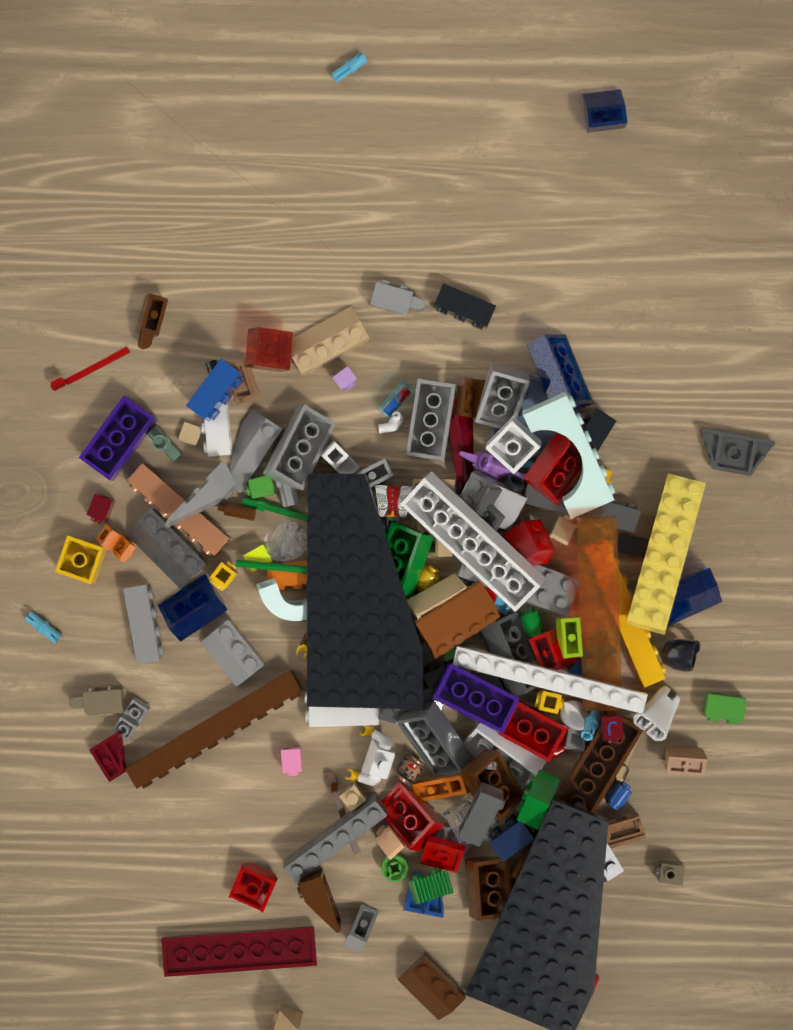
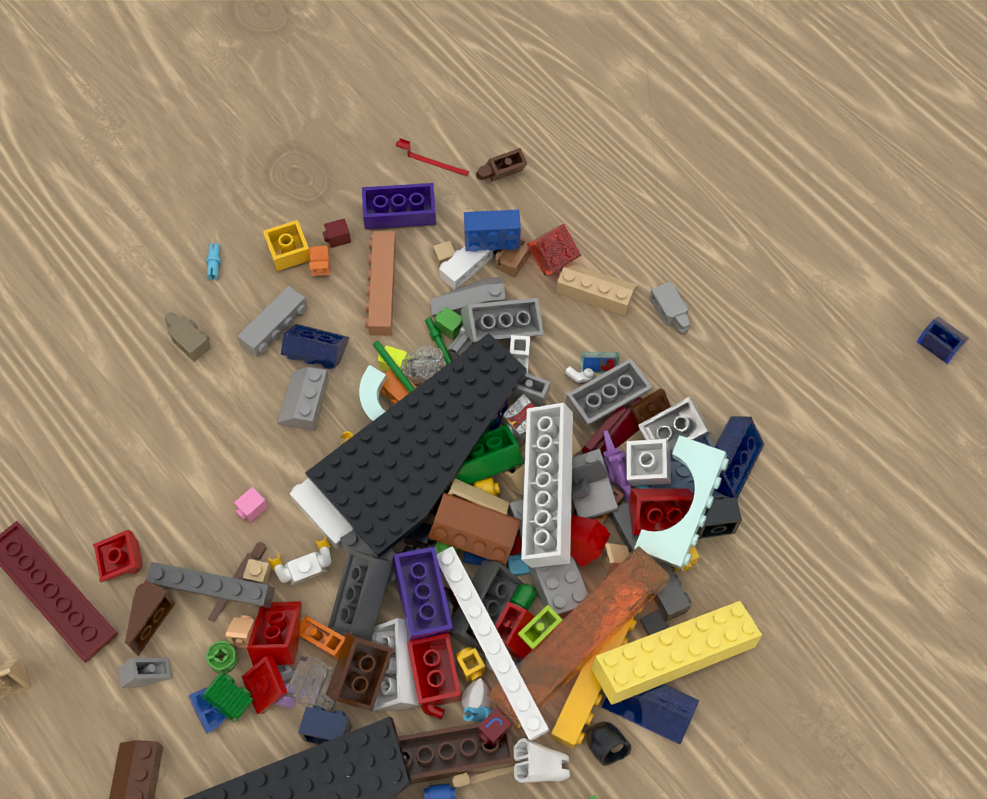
camera: 45 degrees right, 25 degrees down
(110, 756) = (147, 374): dark red wing -> none
(131, 718) = (189, 369): light grey slope -> none
(163, 443) = (421, 236): sand green bar -> none
(167, 548) = (345, 296): flat silver slope -> none
(213, 491) = (414, 287): light grey wedge -> none
(213, 729) = (229, 429): reddish brown brick -> none
(224, 575) = (358, 345): yellow brick -> none
(238, 510) = (416, 322): reddish brown cylinder -> none
(345, 379) = (581, 317): lavender plate -> none
(349, 67) = (793, 161): medium azure axle -> none
(409, 769) = (317, 601): head -> none
(464, 307) = (713, 356): black brick -> none
(481, 814) = (326, 674): dark grey brick -> none
(487, 886) = (266, 744): reddish brown slope -> none
(514, 483) = (619, 490): black tile -> none
(537, 799) = (378, 707): green brick -> none
(574, 741) = (454, 716): light grey plate -> none
(734, 452) = (807, 646): dark grey wing -> none

